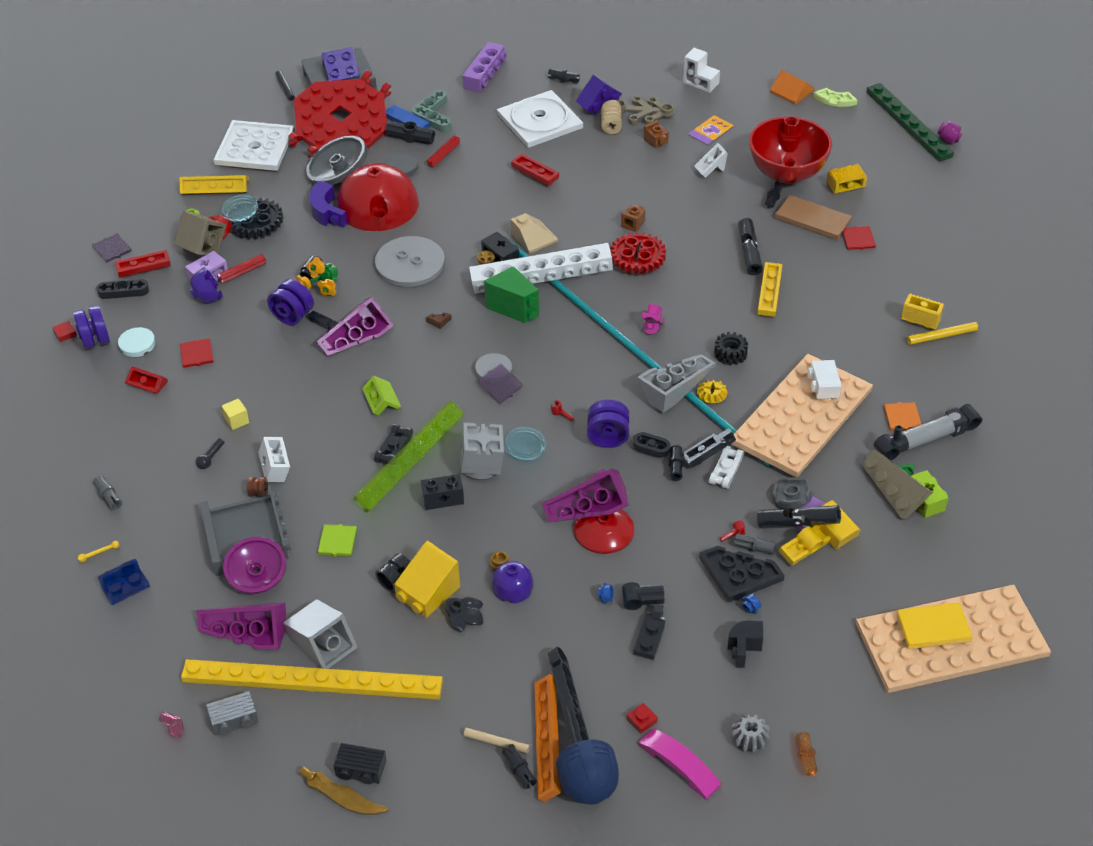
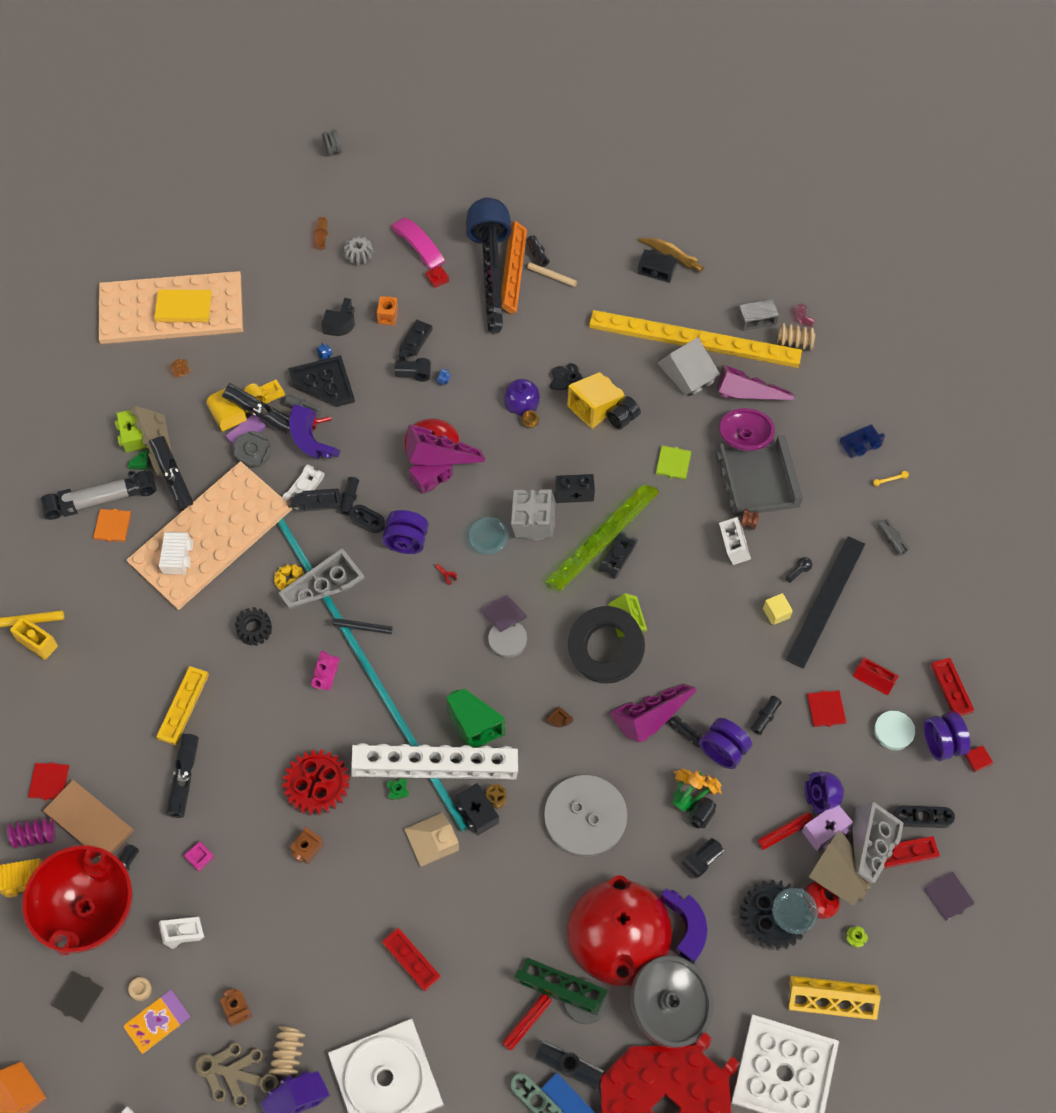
camera: 175 degrees left, 15 degrees up
(76, 374) = (952, 687): none -> red plate
(170, 261) = (874, 839): none -> light grey wedge
(184, 433) = (825, 602): none -> black tile
(186, 688) = (796, 336): none -> tan piece
(252, 337) = (766, 715): none -> black pin
(314, 240) = (699, 861): none -> black piece
(397, 375) = (594, 620): none -> black tyre
(422, 160) = (559, 991): none -> dark green fence
(630, 359) = (362, 626): none -> black bar
(694, 652) = (387, 310): none -> orange brick
(716, 208) = (199, 856): none -> dark pink tile
(729, 140) = (140, 989): none -> tan tile
(734, 499) = (301, 430): none -> dark purple arch
(848, 199) = (31, 833): none -> magenta piece
(862, 445) = (170, 470): none -> black piece
(906, 563) = (177, 364): none -> clear orange plate

